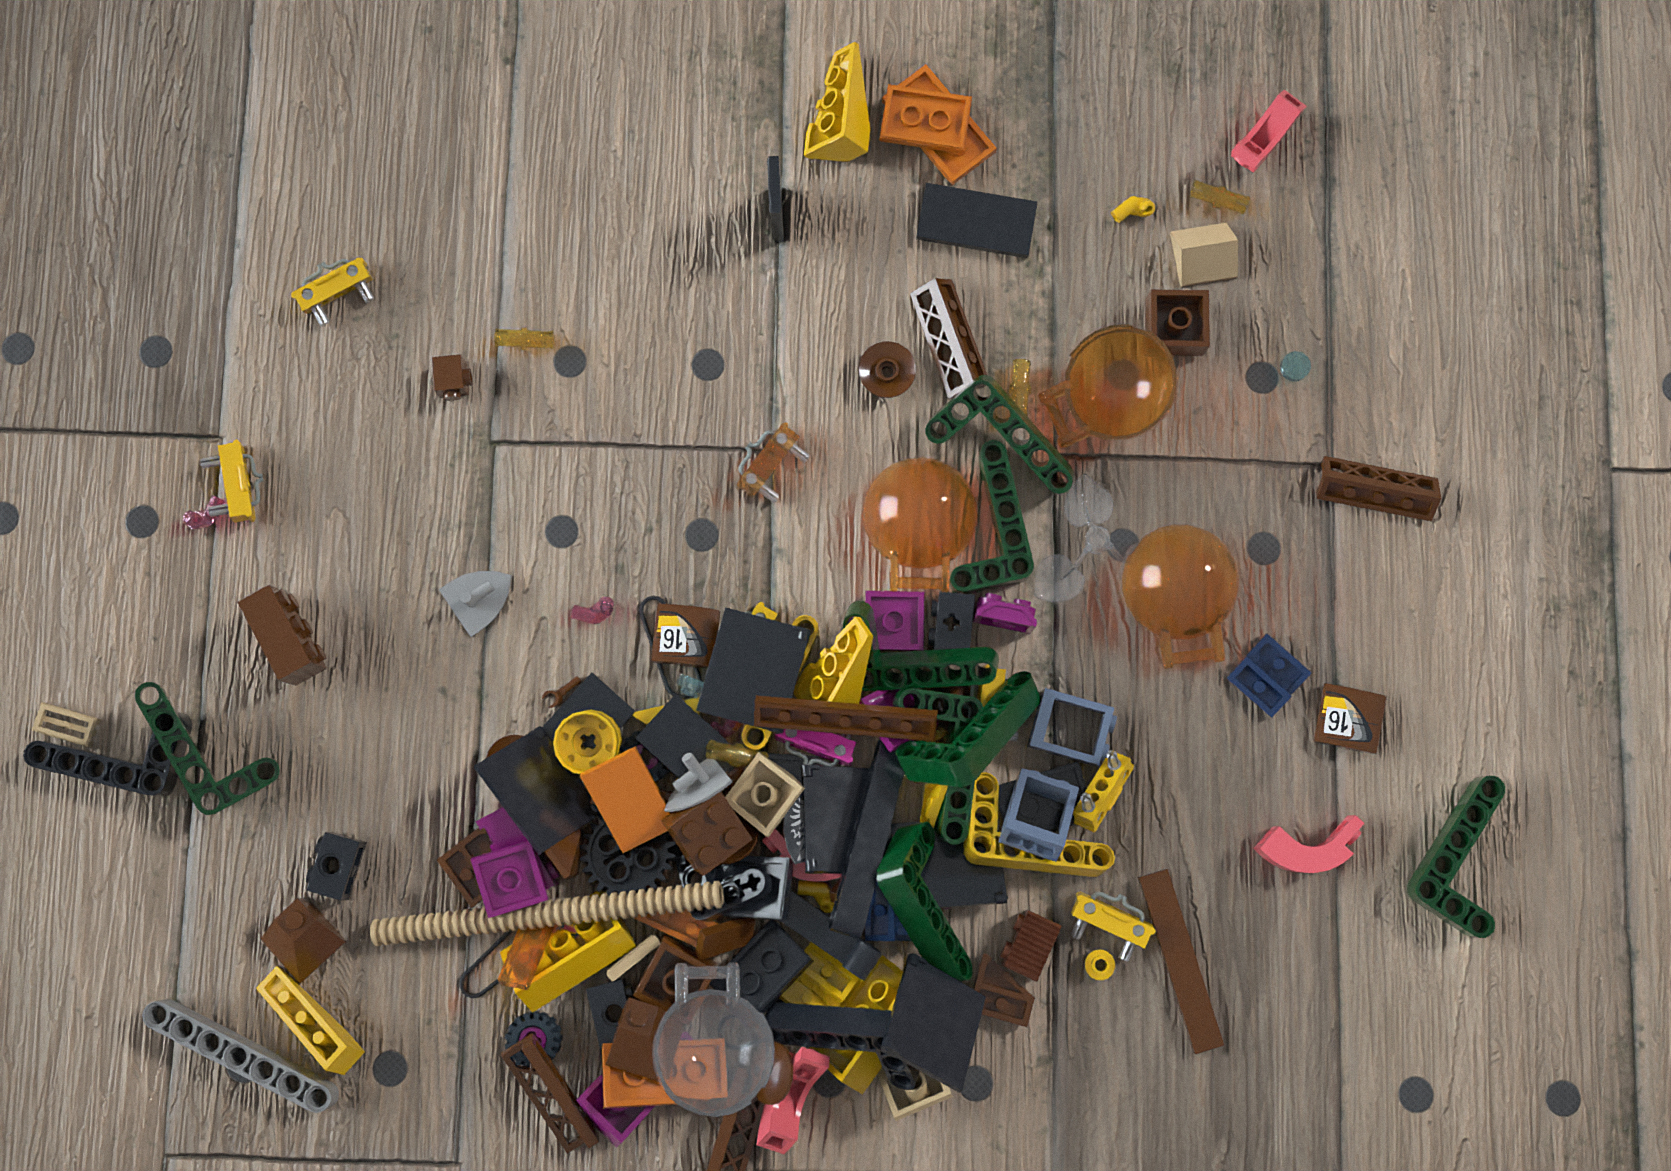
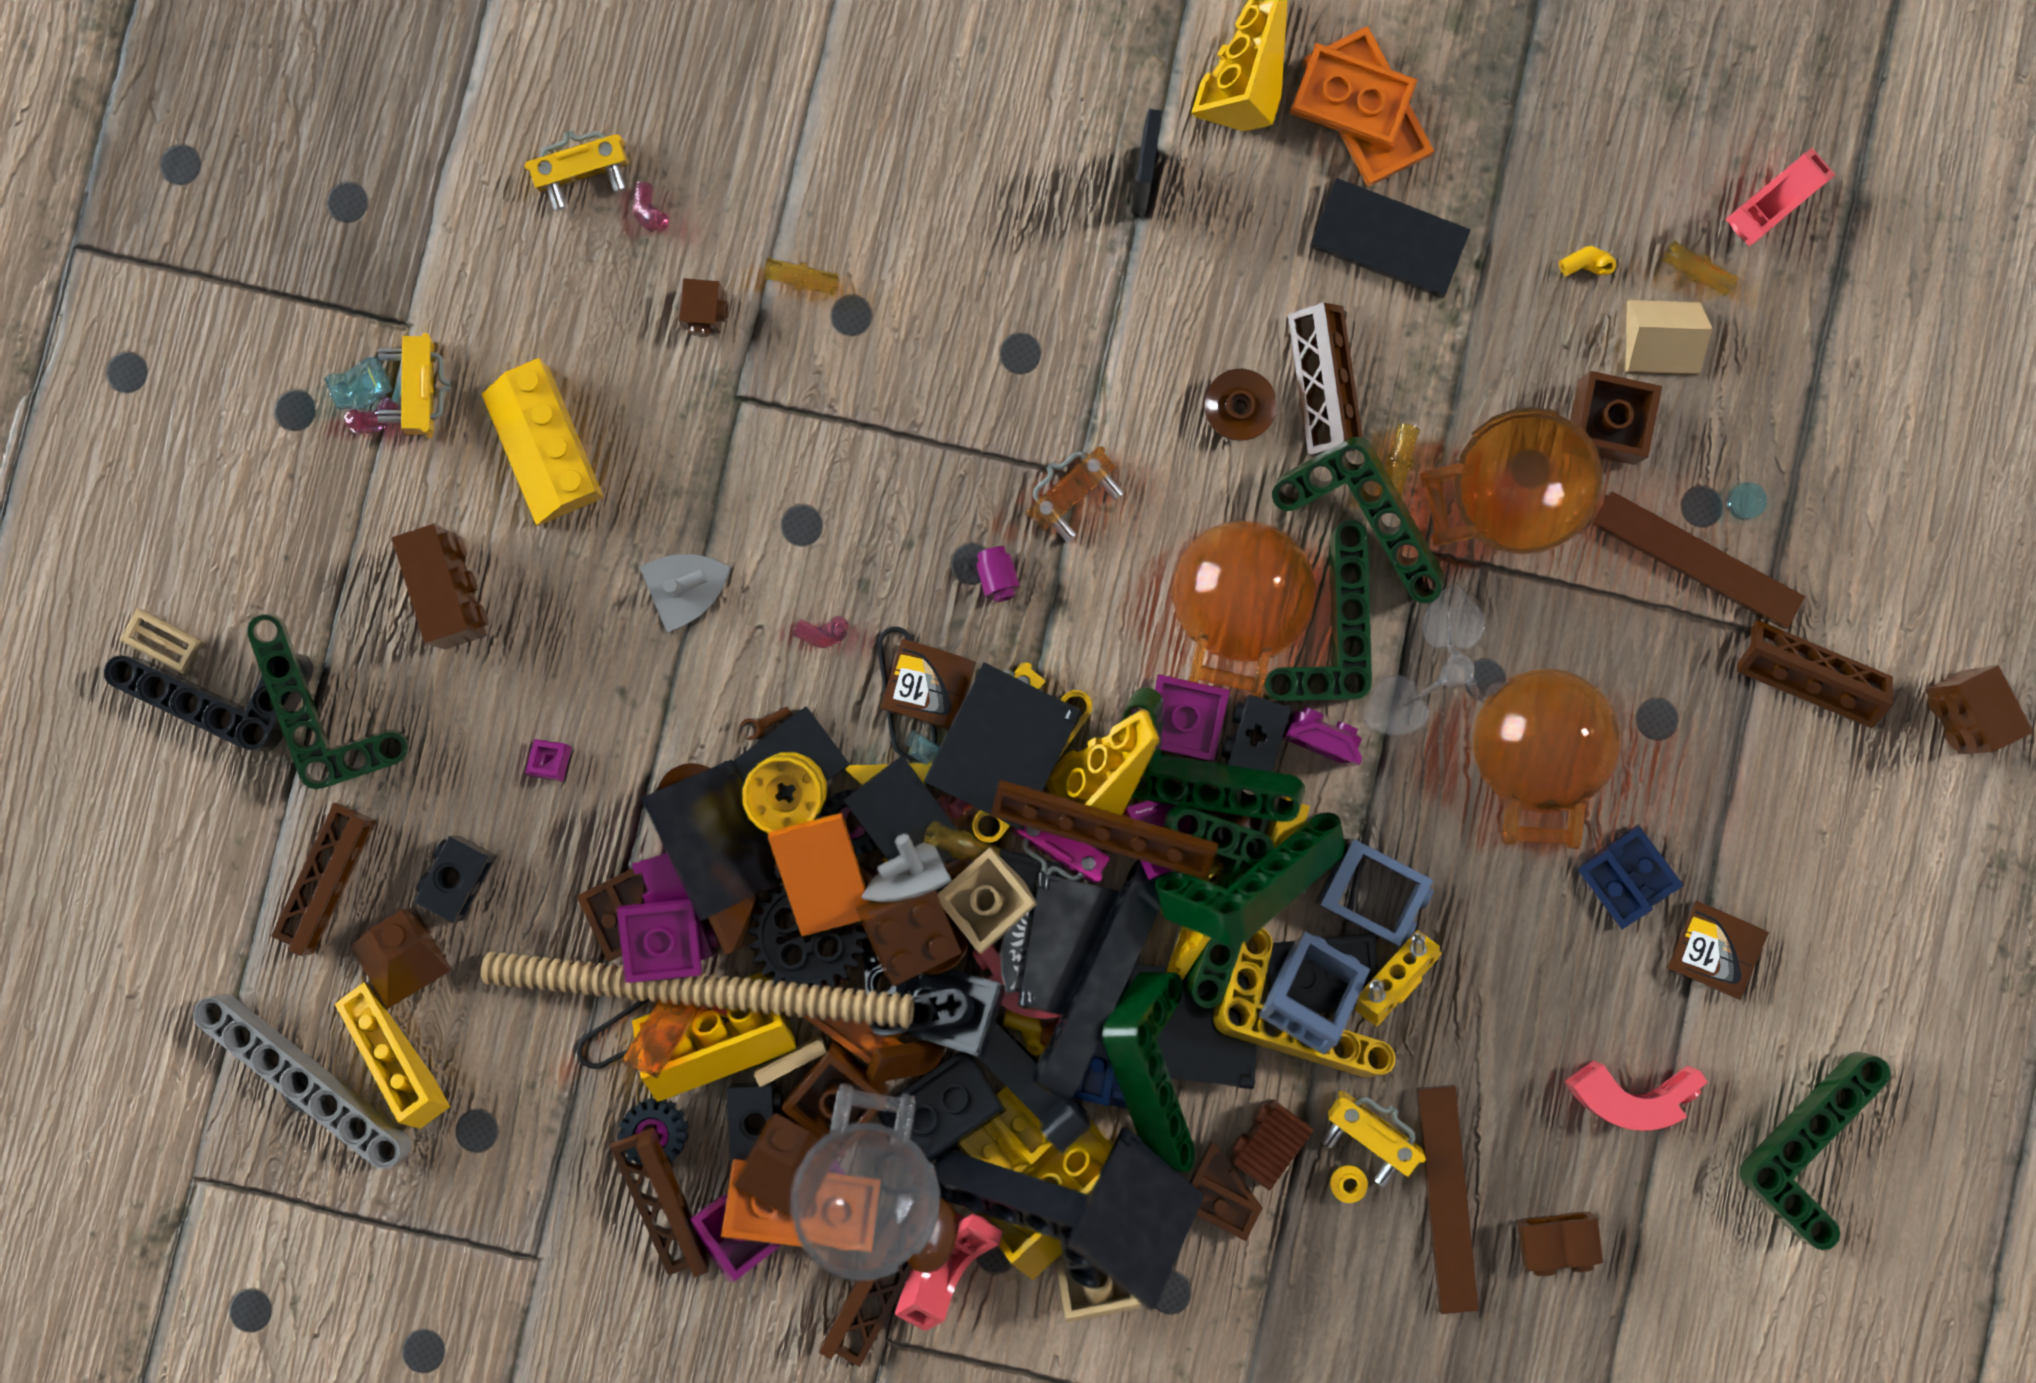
camera: 15 degrees right, 5 degrees up
(190, 491) = (359, 385): none -> clear light blue bracket
(235, 891) = (331, 882): none -> reddish brown fence
(342, 507) = (541, 442): none -> yellow slope
(393, 313) = (645, 212): none -> clear pink arm
(394, 756) = (548, 760): none -> magenta tile
(723, 538) = (997, 574): none -> magenta brick
(1268, 419) = (1698, 560): none -> reddish brown tile
(1277, 976) = (1560, 1242): none -> reddish brown brick
(1508, 490) = (1978, 710): none -> reddish brown brick

